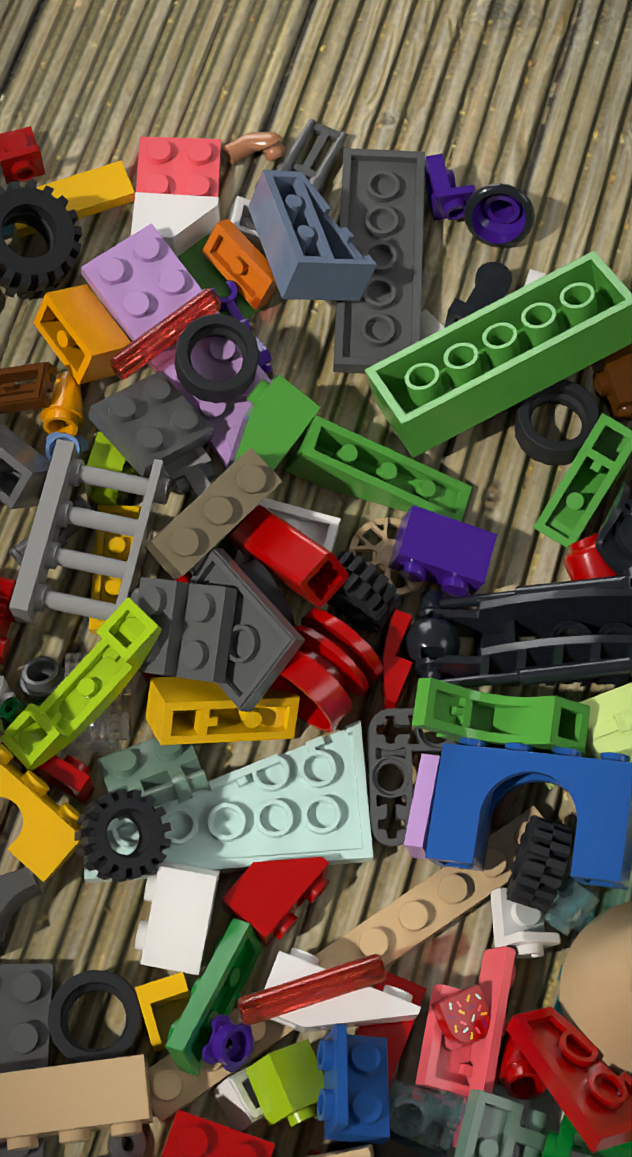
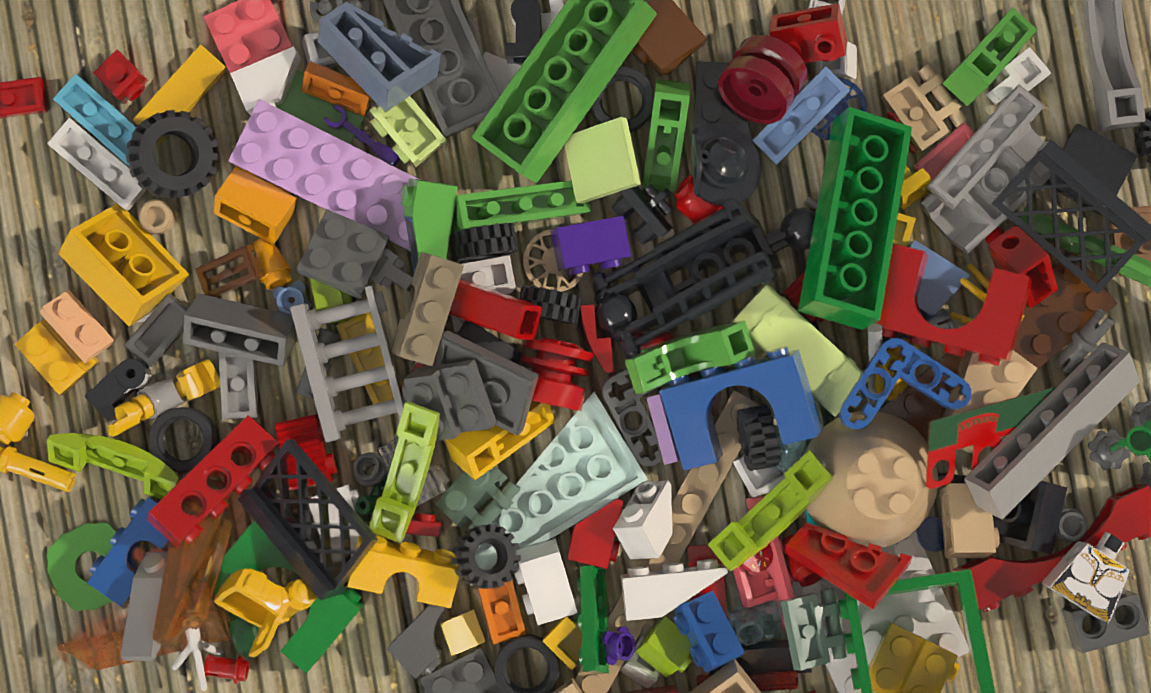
camera: 25 degrees left, 20 degrees up
(41, 933) = (462, 632): none -> light yellow slope
(106, 924) = (502, 612): none -> orange plate
(163, 334) = (317, 183): clear red axle -> none
(223, 327) = (377, 161): black tyre -> none
(298, 339) = (410, 129): none -> yellowish green bracket
(311, 989) = (655, 594): clear red axle -> none
(321, 486) = (485, 242): none -> black tyre
(345, 903) = (646, 520): none -> white slope
(501, 466) = (602, 160): none -> yellowish green tile
(517, 531) = (654, 222): none -> black hips
(517, 968) = (773, 513): none -> lime slope

